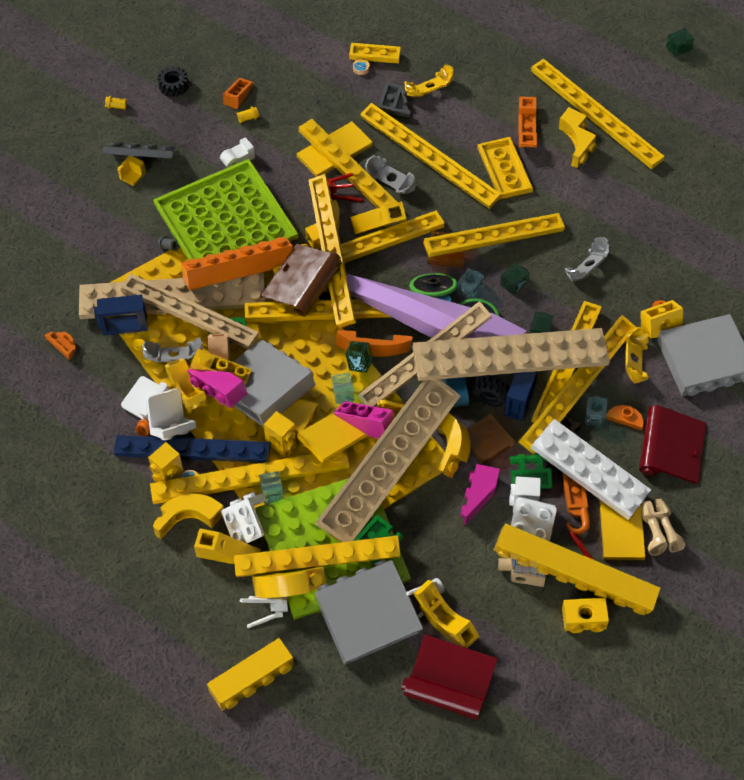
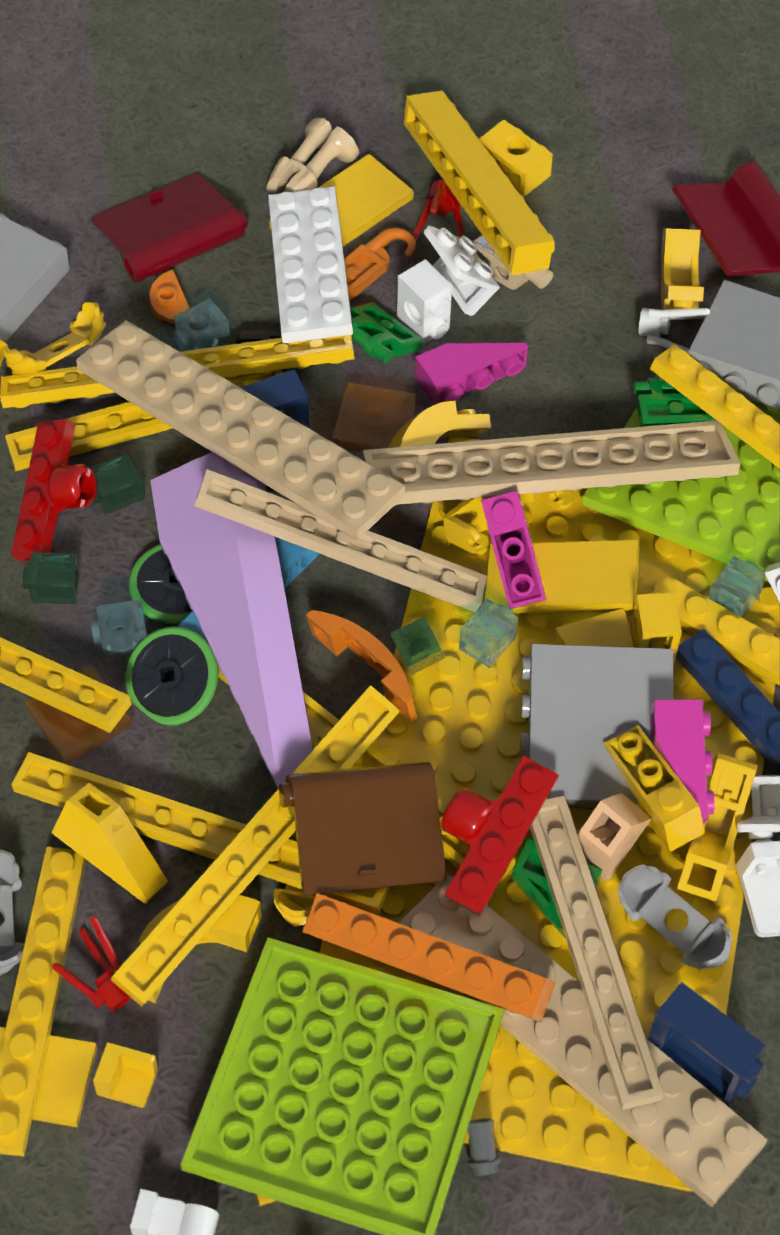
camera: 135 degrees left, 0 degrees up
(259, 312) = (493, 831): none -> red plate
(298, 176) = (125, 1075): none -> yellow panel
(552, 298) = (50, 488): none -> red plate

